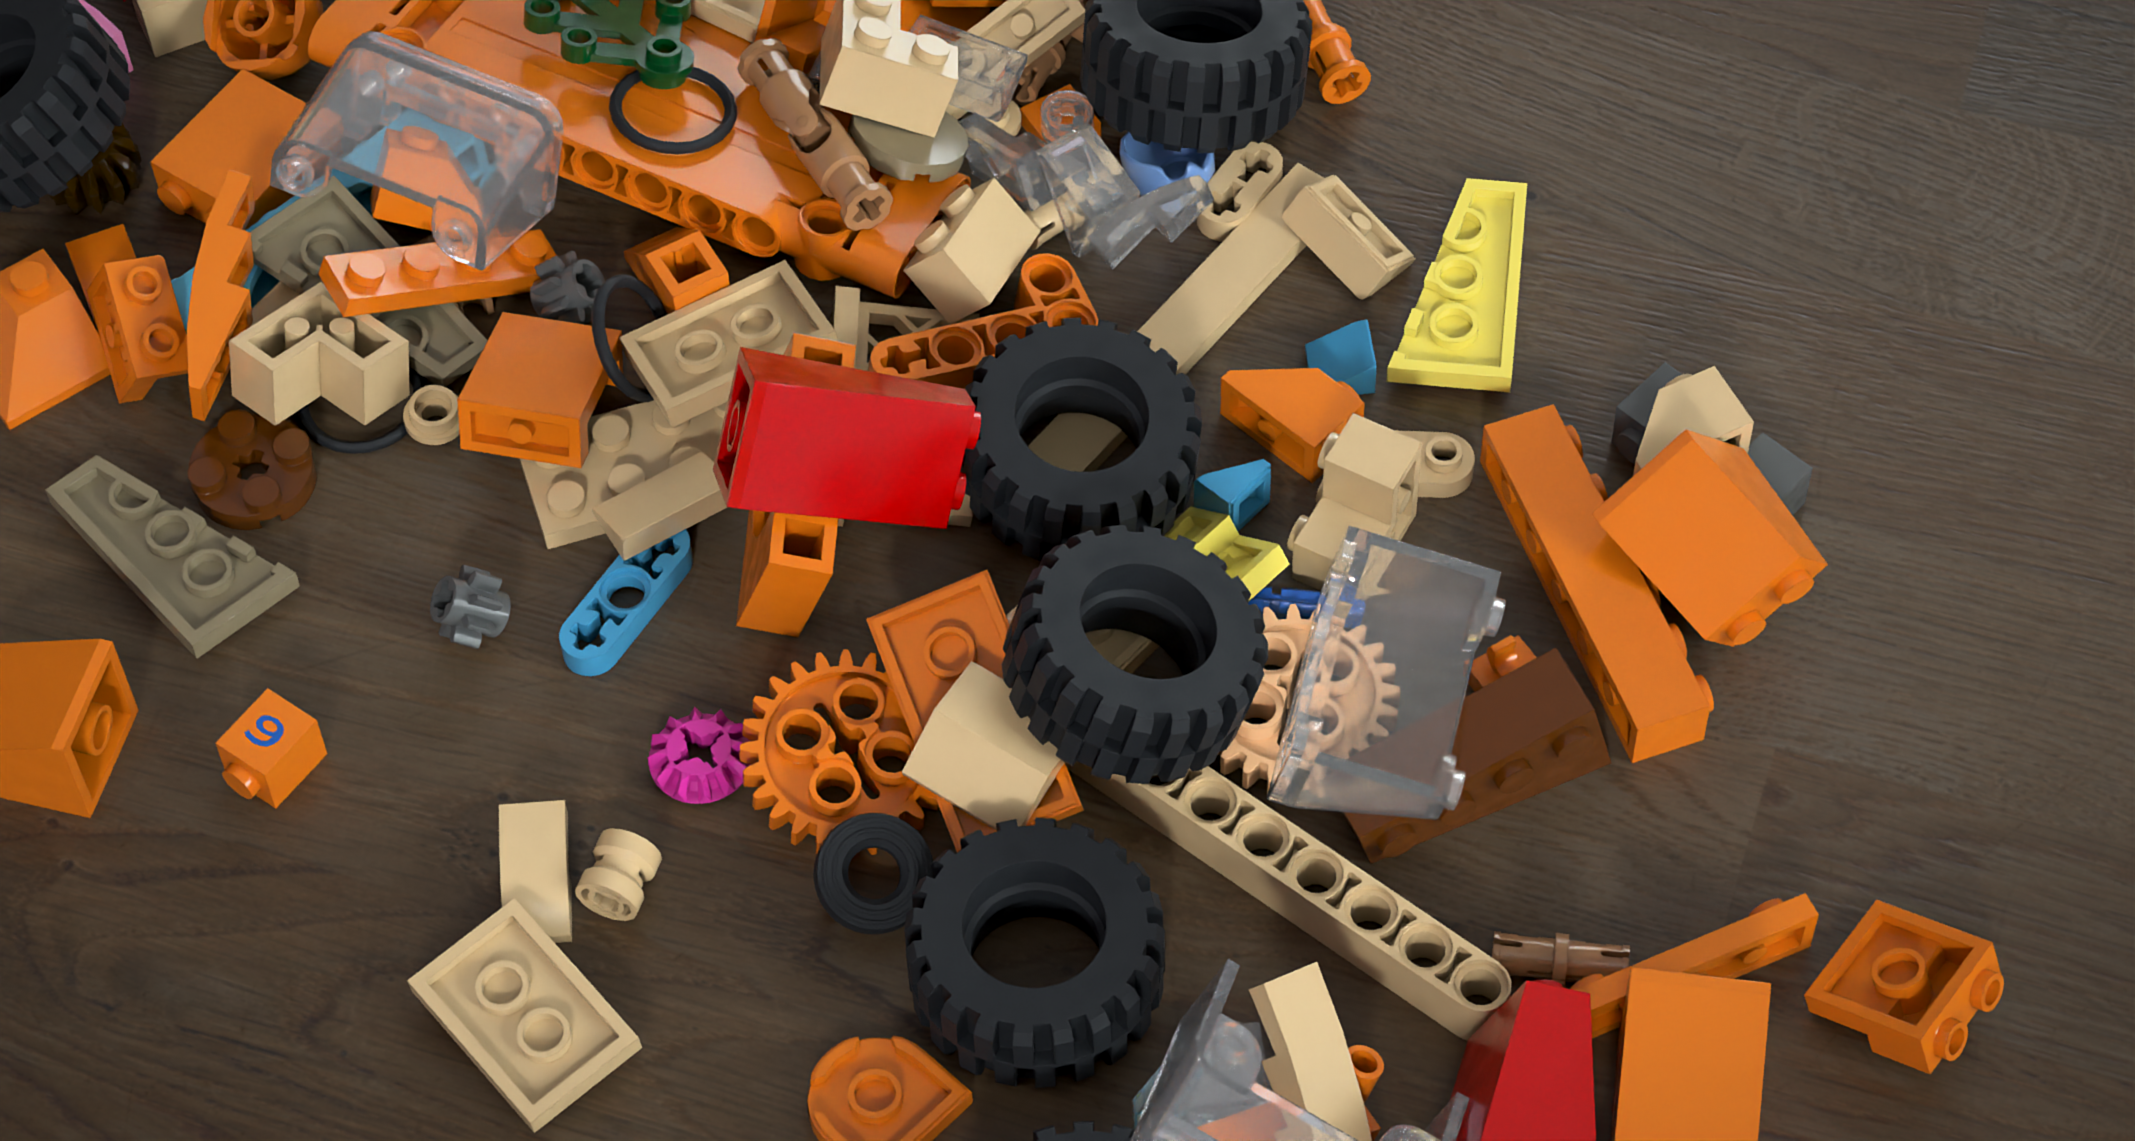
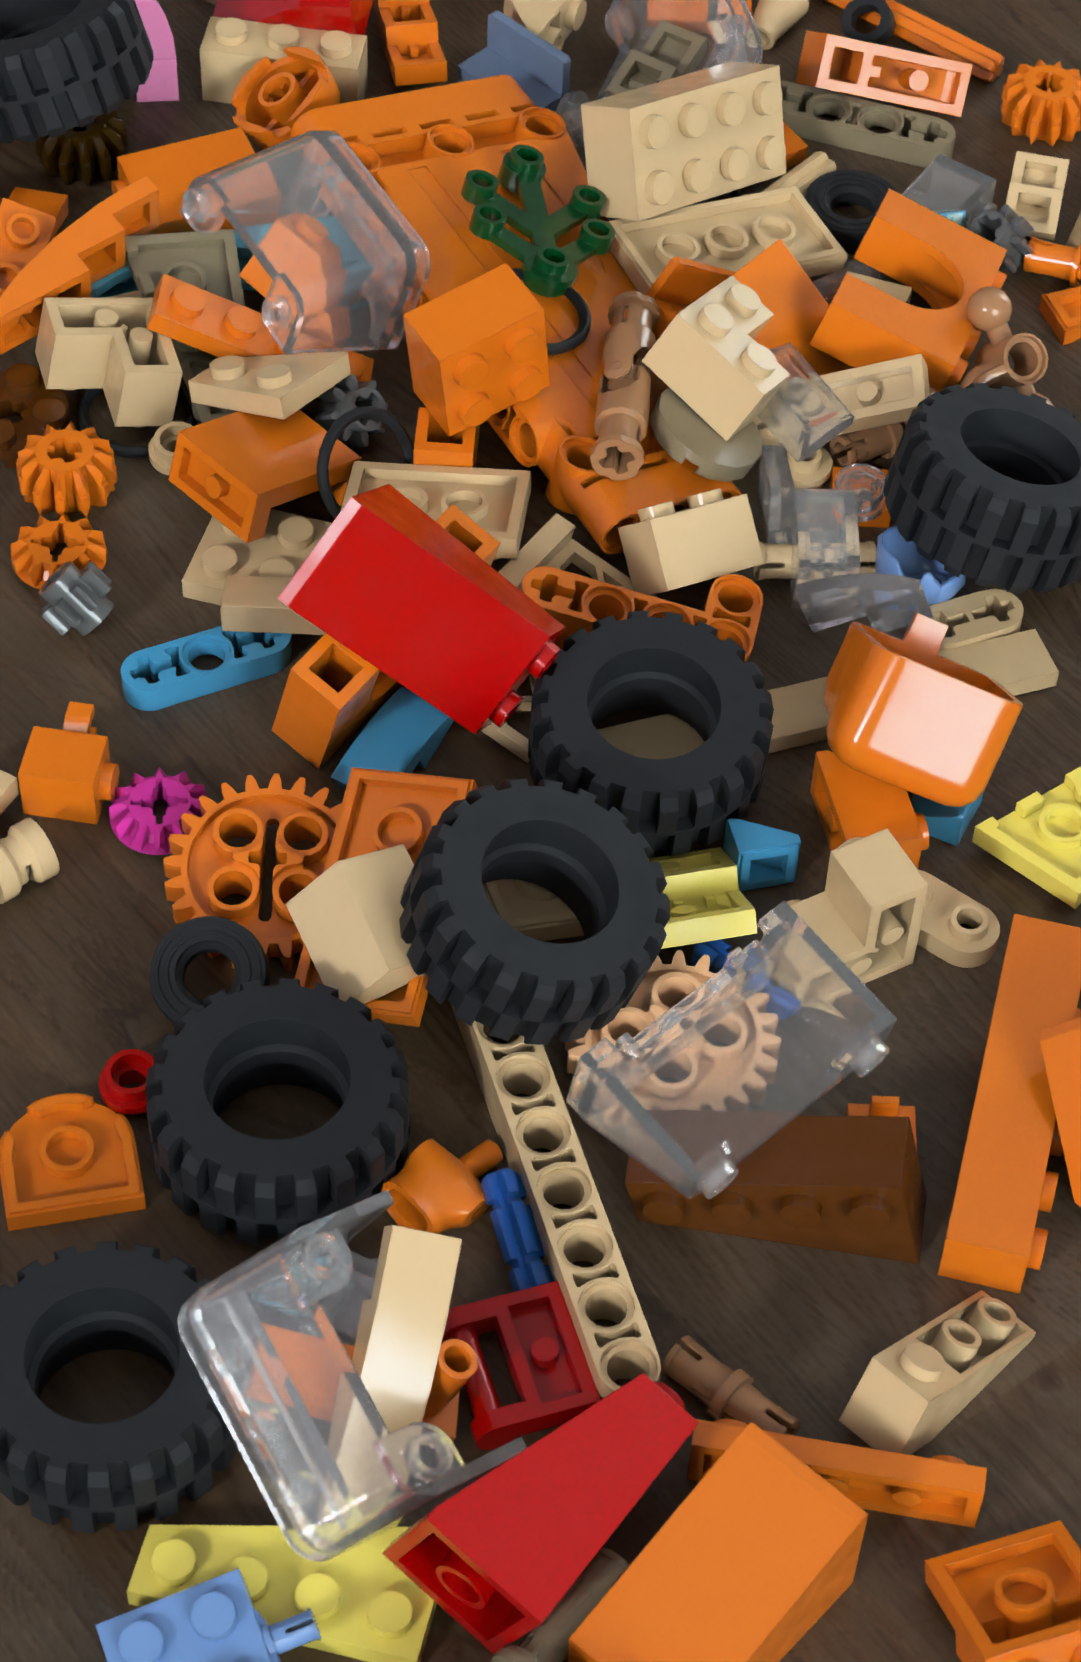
camera: 30 degrees right, 5 degrees down
(354, 492) = (66, 470): none -> orange gear
(391, 592) = (32, 550): none -> orange gear
(488, 308) = (269, 383): none -> tan wing
(596, 765) = (68, 770): none -> orange brick
(684, 175) = (477, 349): none -> orange brick
(857, 582) = (396, 738): none -> dark azure slope
(873, 988) = (122, 1069): none -> red plate
(1204, 933) = (439, 1189): none -> orange piece
(1285, 296) = (916, 714): none -> orange piece
(1297, 934) = (515, 1229): none -> blue axle
(1347, 236) = (1044, 726): tan slope -> none
(1402, 1027) = (541, 1357): none -> red plate
(1701, 844) = (934, 1374): none -> tan slope

